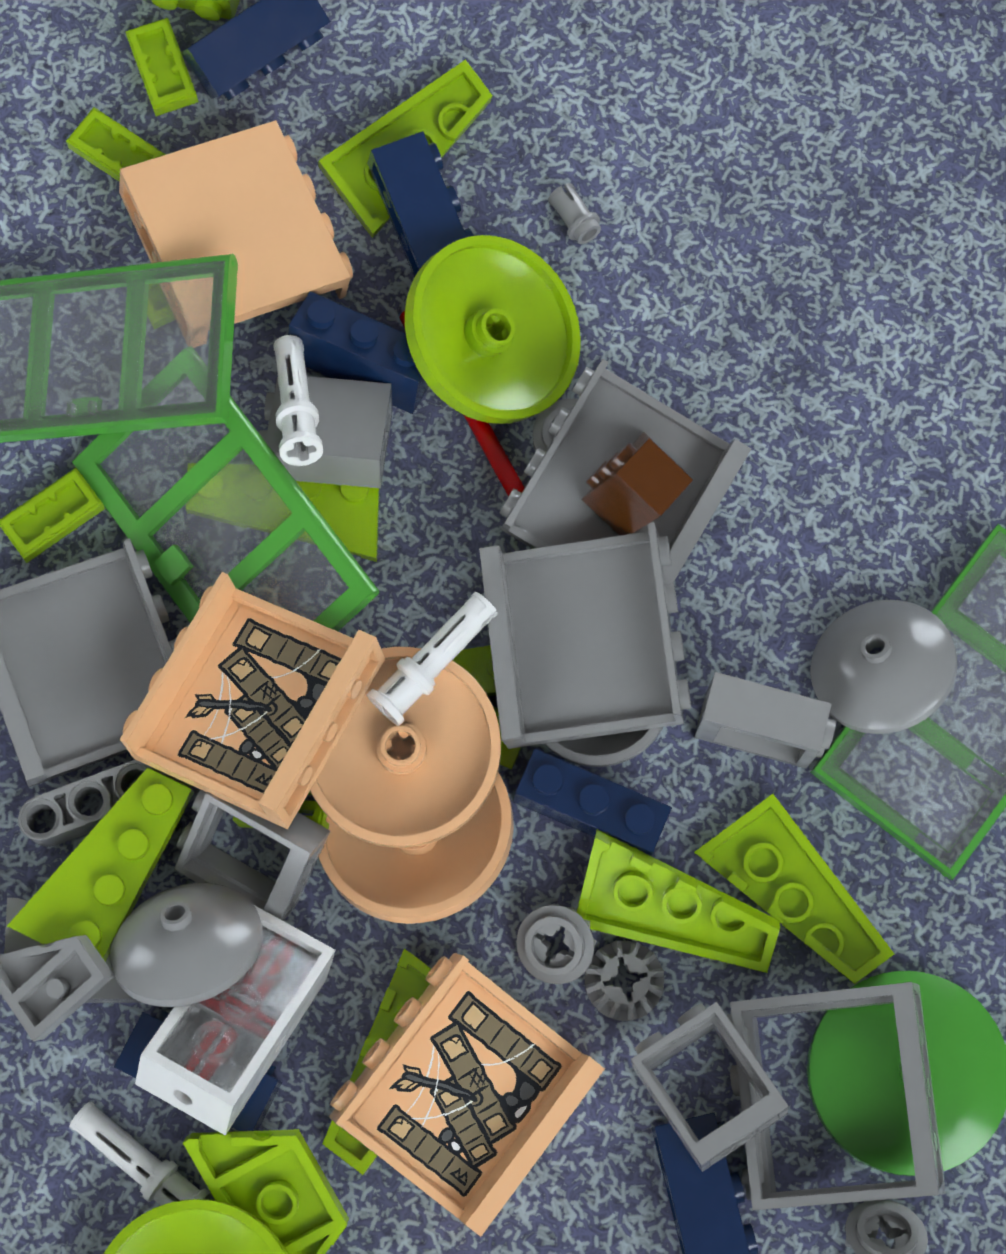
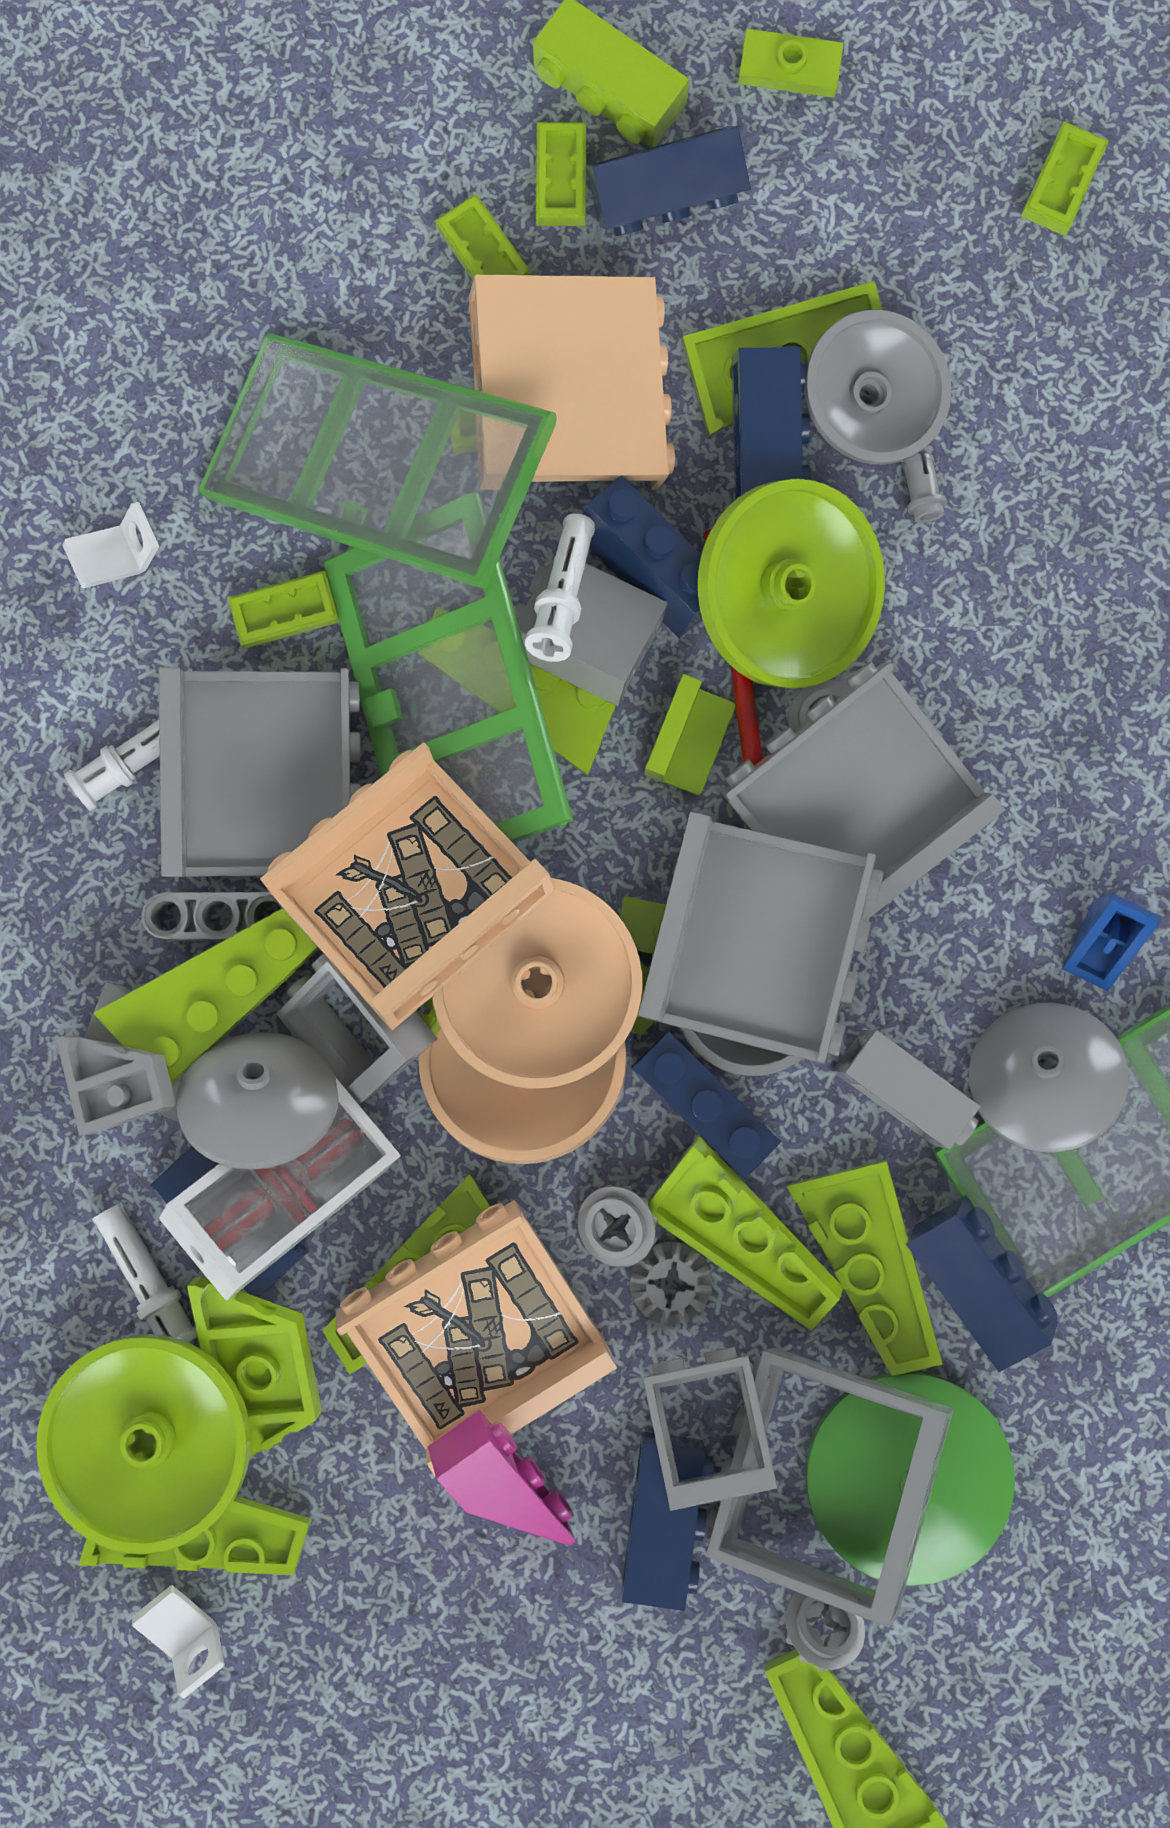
camera: 25 degrees right, 10 degrees up
(417, 674) = (576, 921): white pin -> none
(454, 494) = (689, 737): none -> lime panel
(503, 120) = (901, 372): none -> light grey dish
(533, 1215) = (494, 1483): none -> dark pink slope
(635, 486) = (876, 809): reddish brown wedge -> none
(888, 530) = (1109, 939): none -> blue slope
(901, 867) = (983, 1283): none -> dark blue brick

